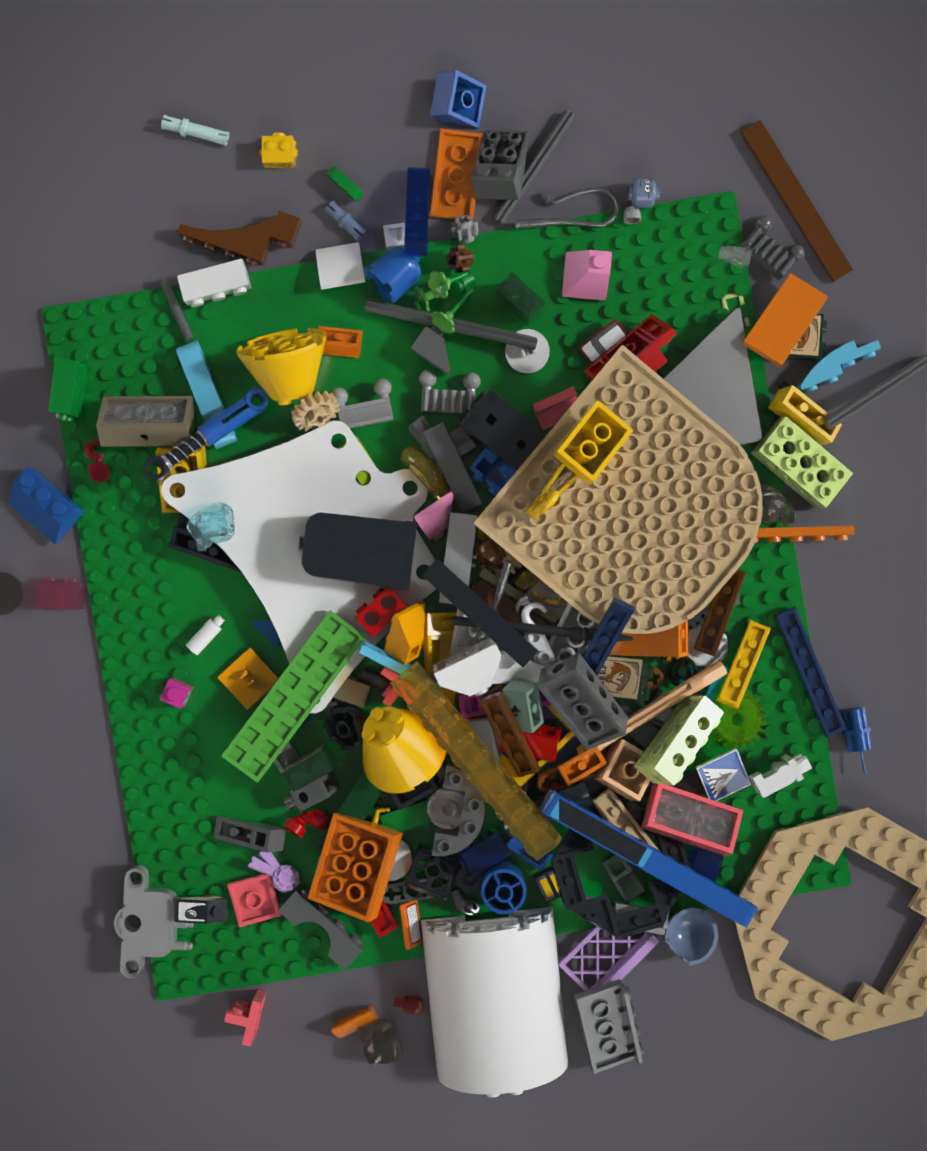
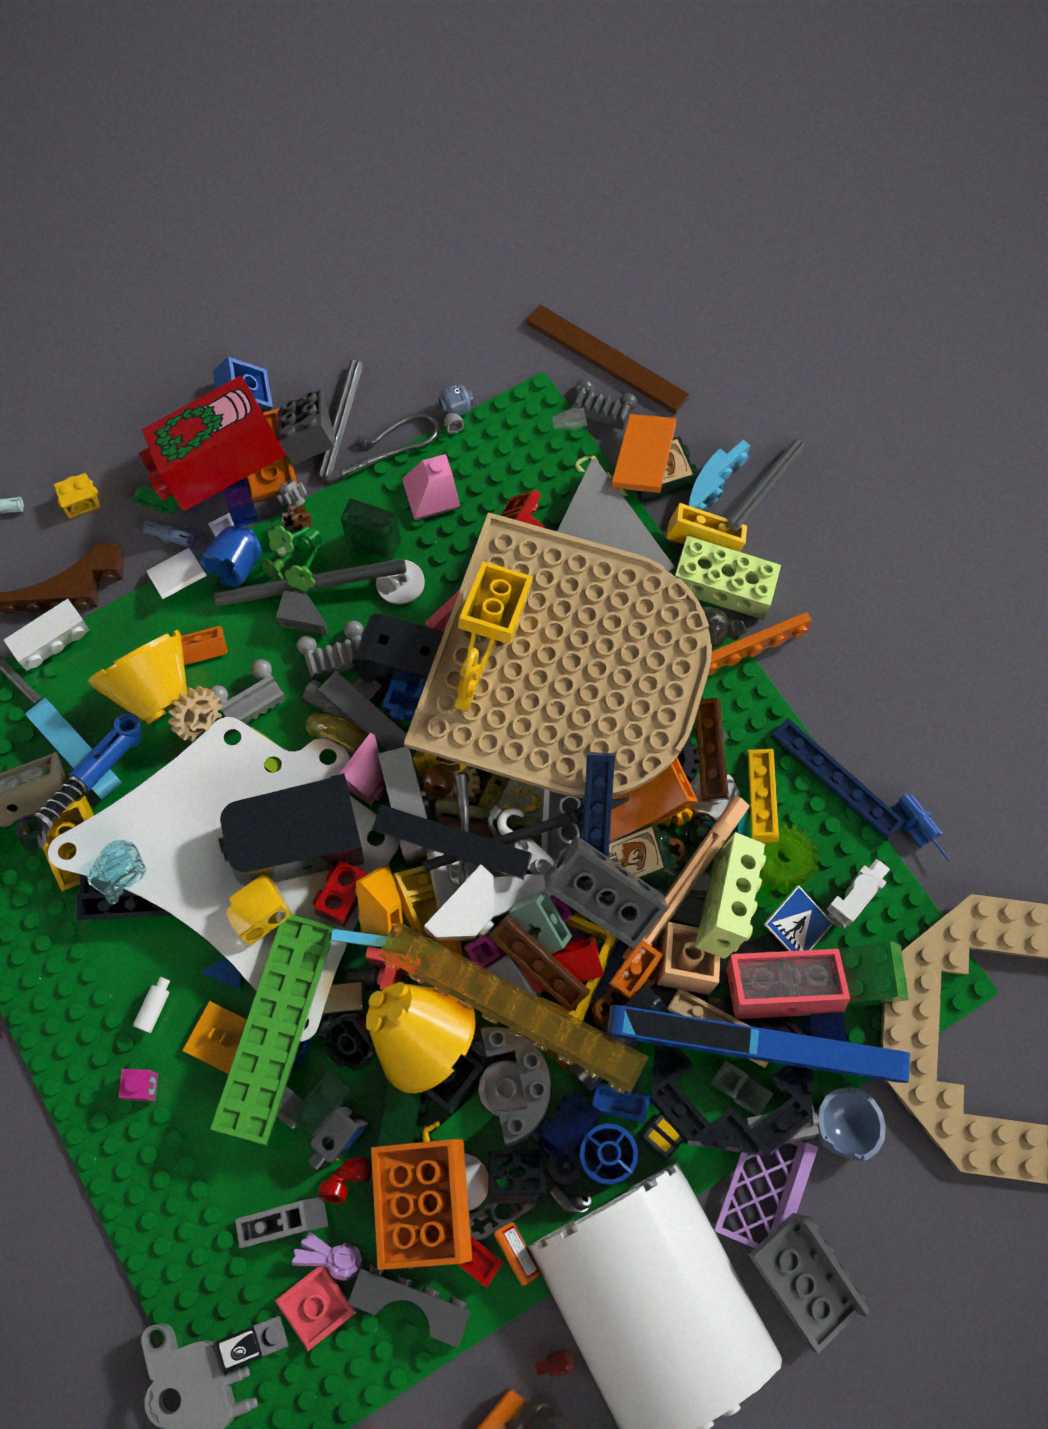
camera: 25 degrees left, 20 degrees down
(310, 601) = (257, 909): none -> yellow piece
(410, 160) = (209, 445): none -> red brick
(603, 341) = (467, 544): slope -> none
(761, 839) = (874, 973): none -> green brick

